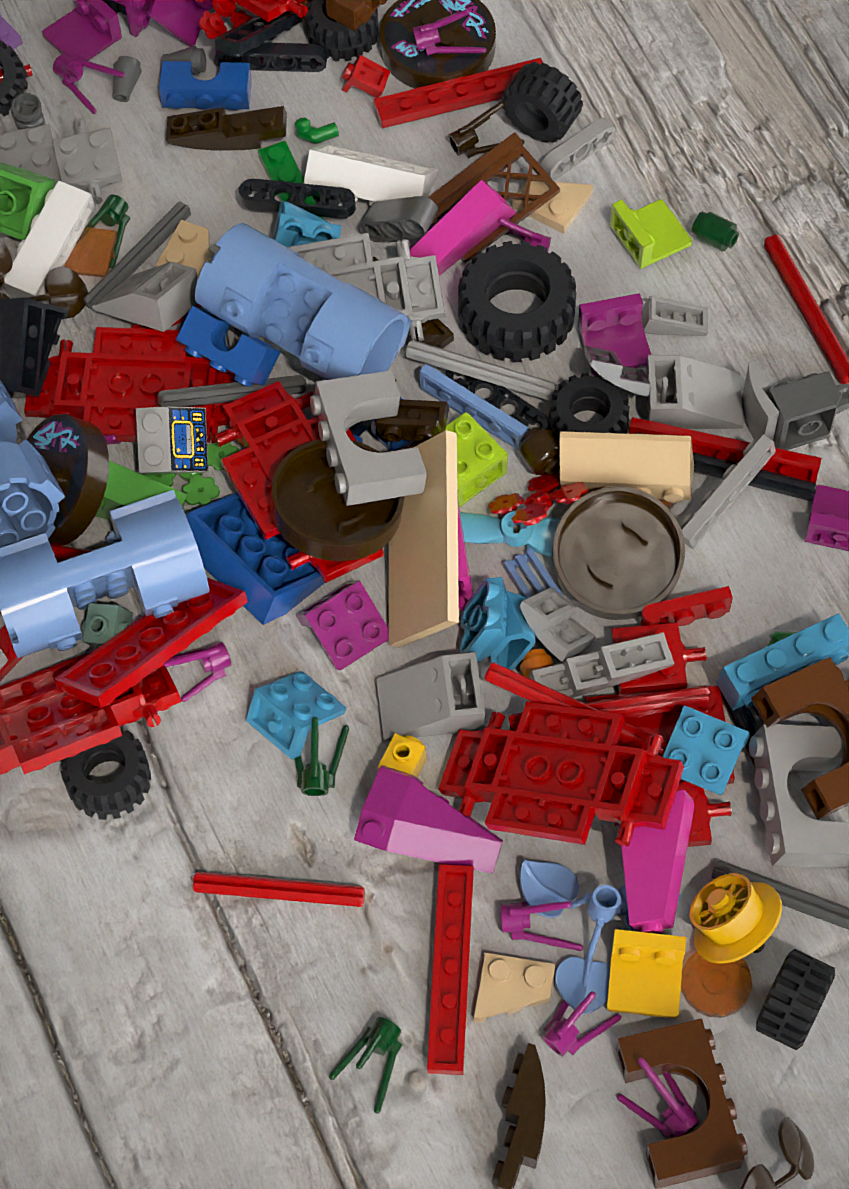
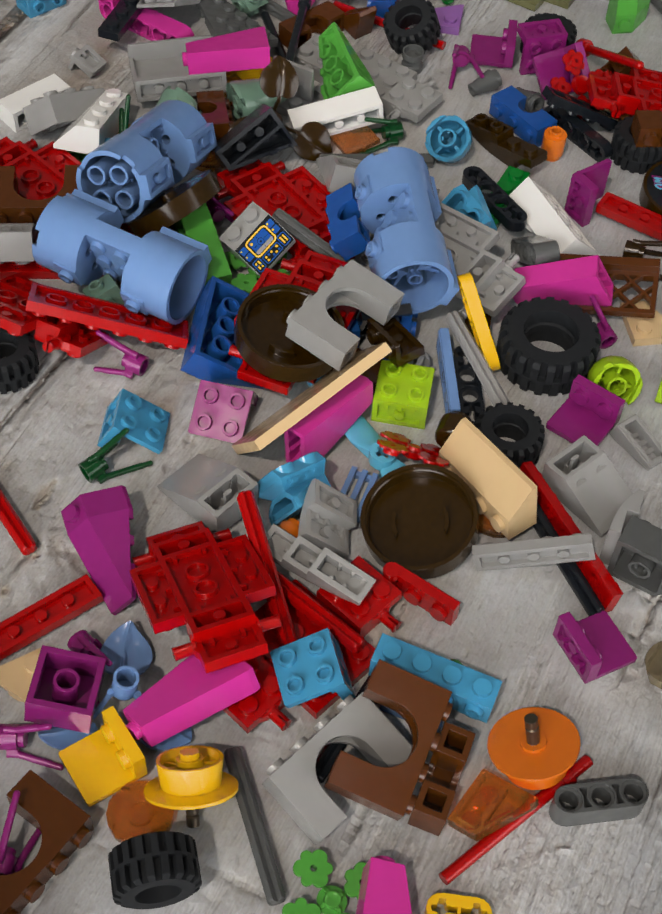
camera: 45 degrees right, 10 degrees down
(184, 173) = (448, 139): none -> dark azure cylinder
(270, 88) = (554, 142): none -> orange brick
(314, 134) = (551, 183): green arm -> none
(365, 76) = (621, 180): red bracket -> none
(368, 122) = (585, 189): none -> magenta bracket
(405, 755) = (149, 505): yellow brick -> none
(444, 332) = (478, 320): none -> yellow beam
(565, 957) = (65, 689): none -> magenta brick
(600, 278) = (617, 376): none -> lime cylinder
(610, 367) = (551, 423): slope -> none

